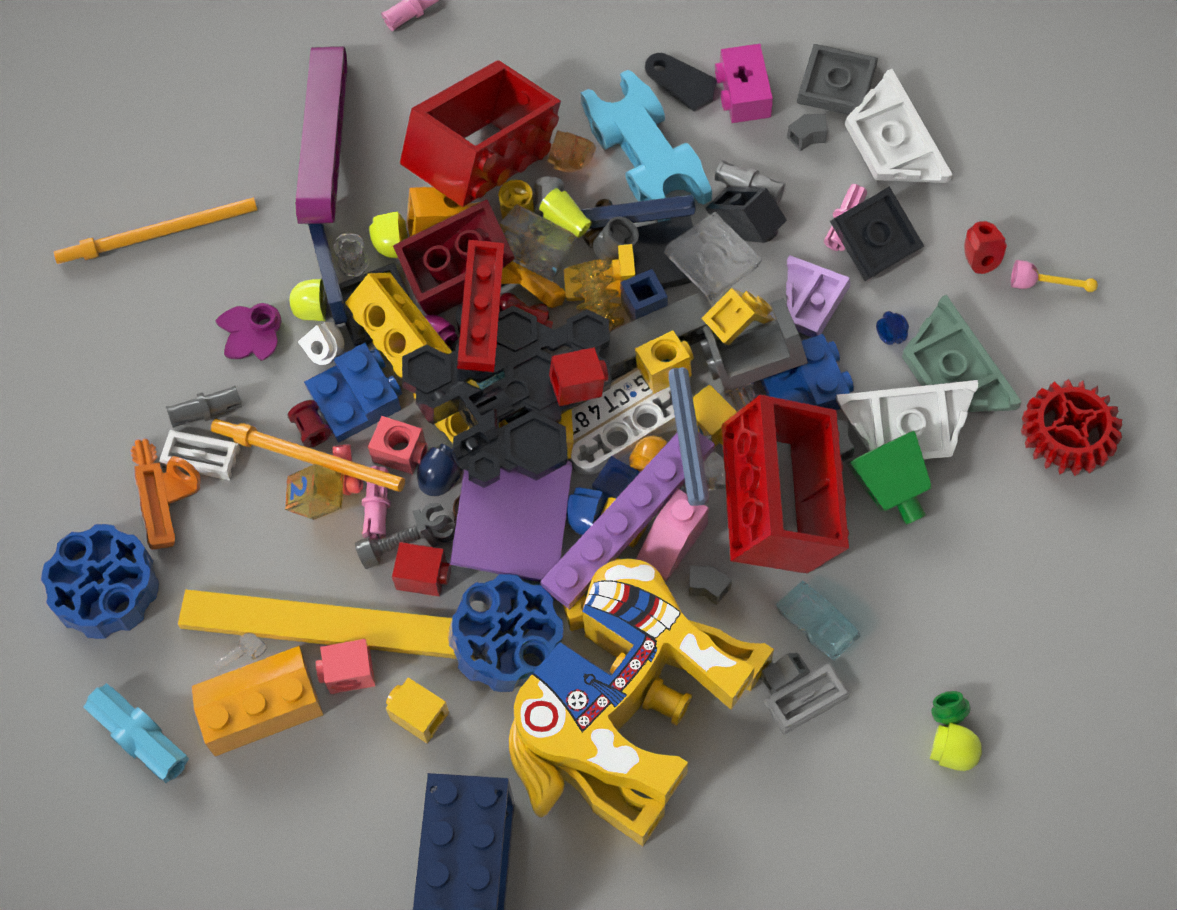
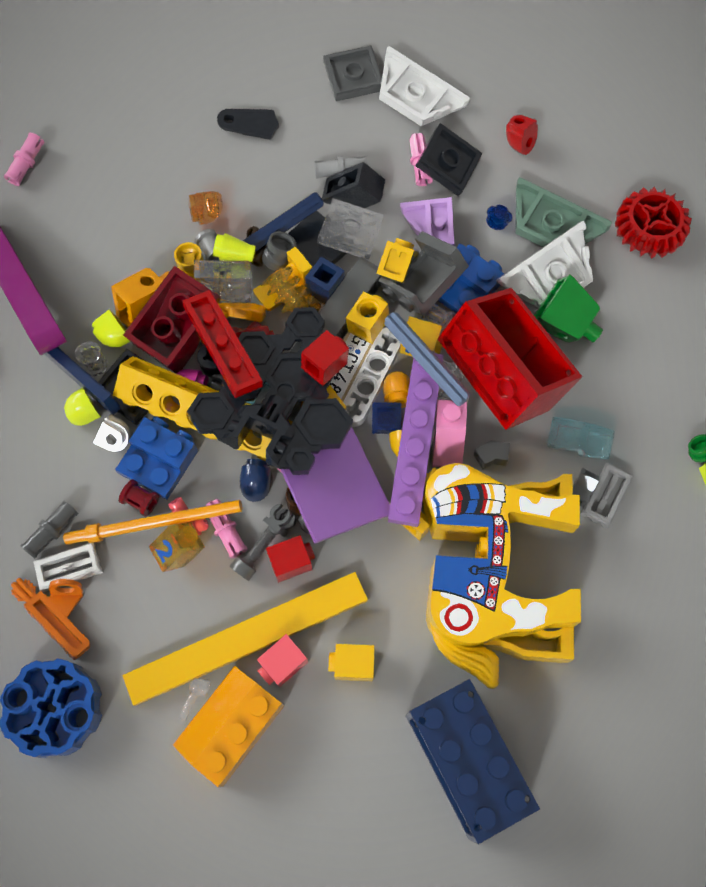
camera: 35 degrees left, 5 degrees up
(136, 733) = (153, 808): medium azure piece -> none
(247, 334) = (49, 458): magenta plate -> none
(387, 435) = (206, 469): coral brick -> none
(470, 625) = (402, 592): blue connector -> none
(496, 95) = (130, 250): red hose -> none
(584, 508) = (379, 451): blue piece -> none
(634, 127) = (239, 169): medium azure piece -> none
(667, 701) = (525, 552): yellow bush -> none
(744, 83) = (295, 102): dark pink brick -> none
(808, 130) = (357, 114): dark grey piece -> none
(1026, 275) = (557, 139): hinge -> none

